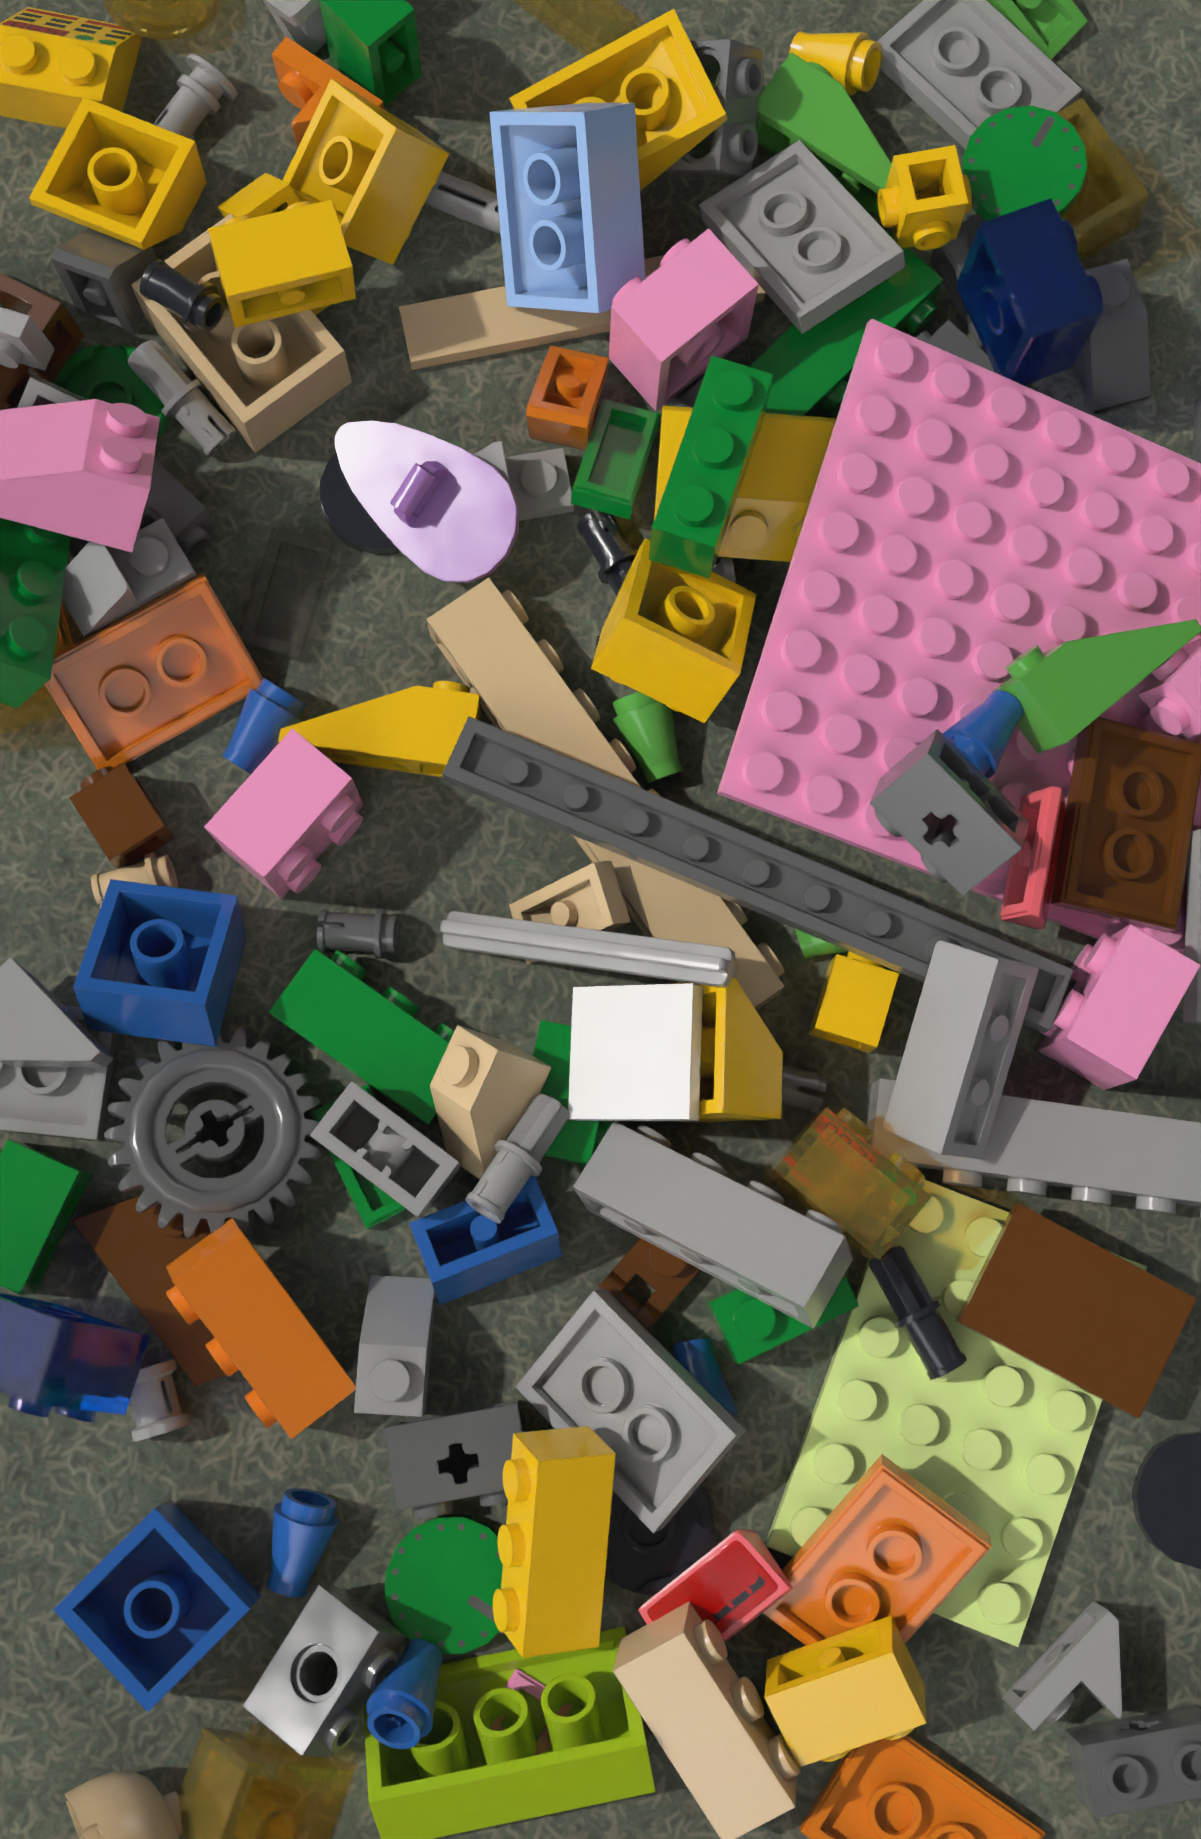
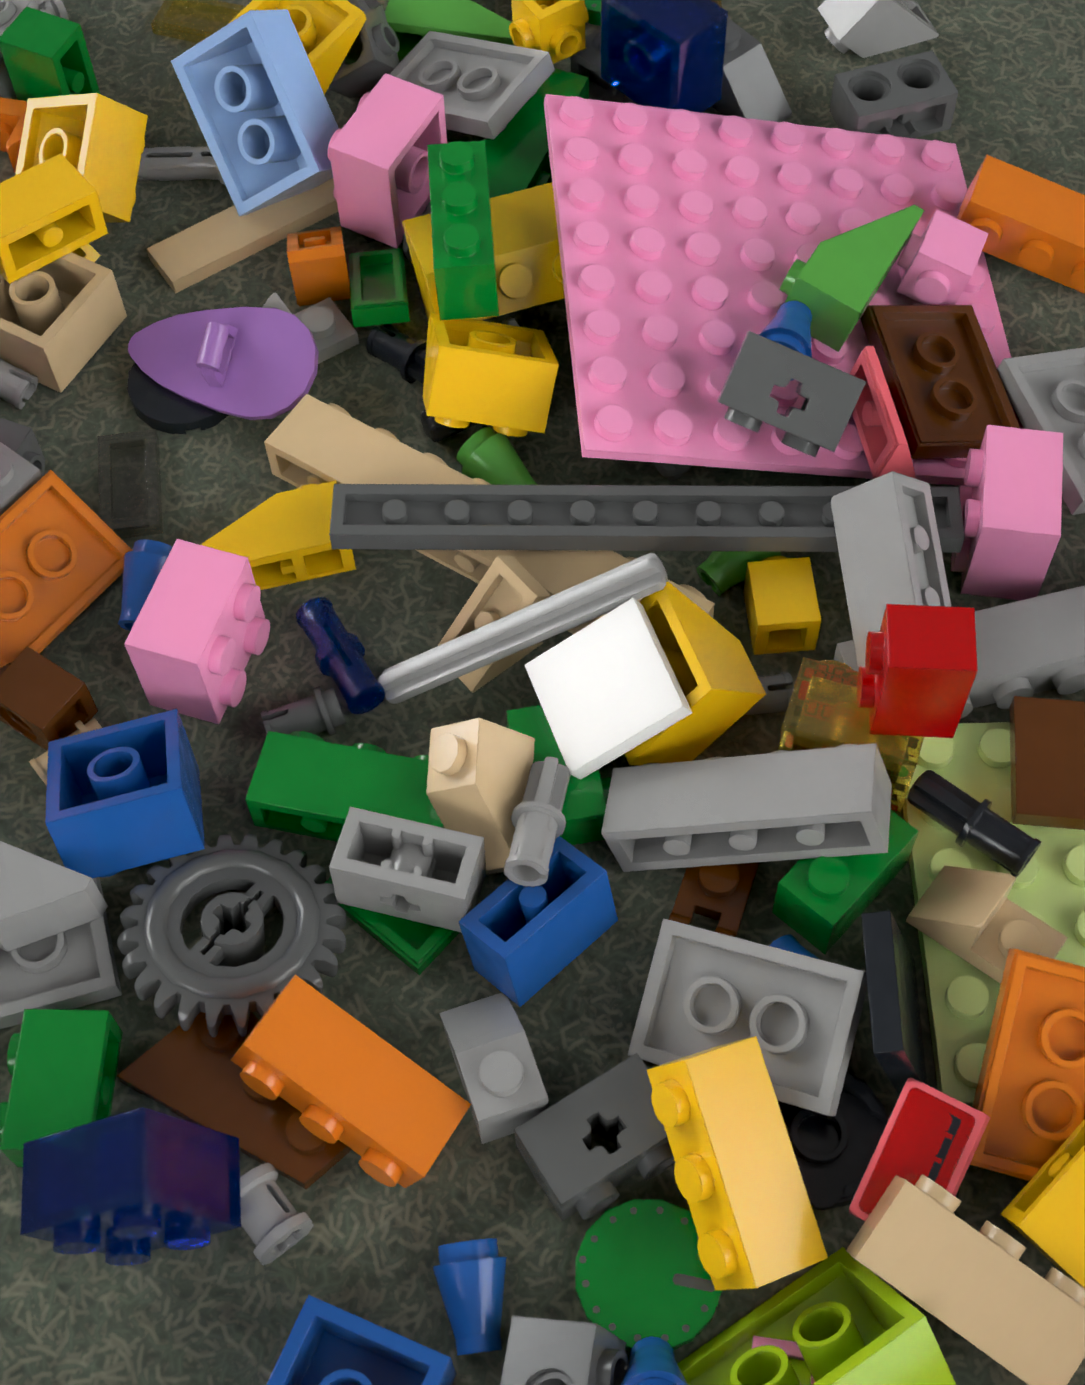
camera: 15 degrees left, 20 degrees down
(420, 919) = (327, 636): none -> clear blue pin
(758, 1457) = (893, 1000): none -> black tile
(877, 1409) = (977, 922): none -> tan slope
(910, 1197) = (918, 670): none -> red brick

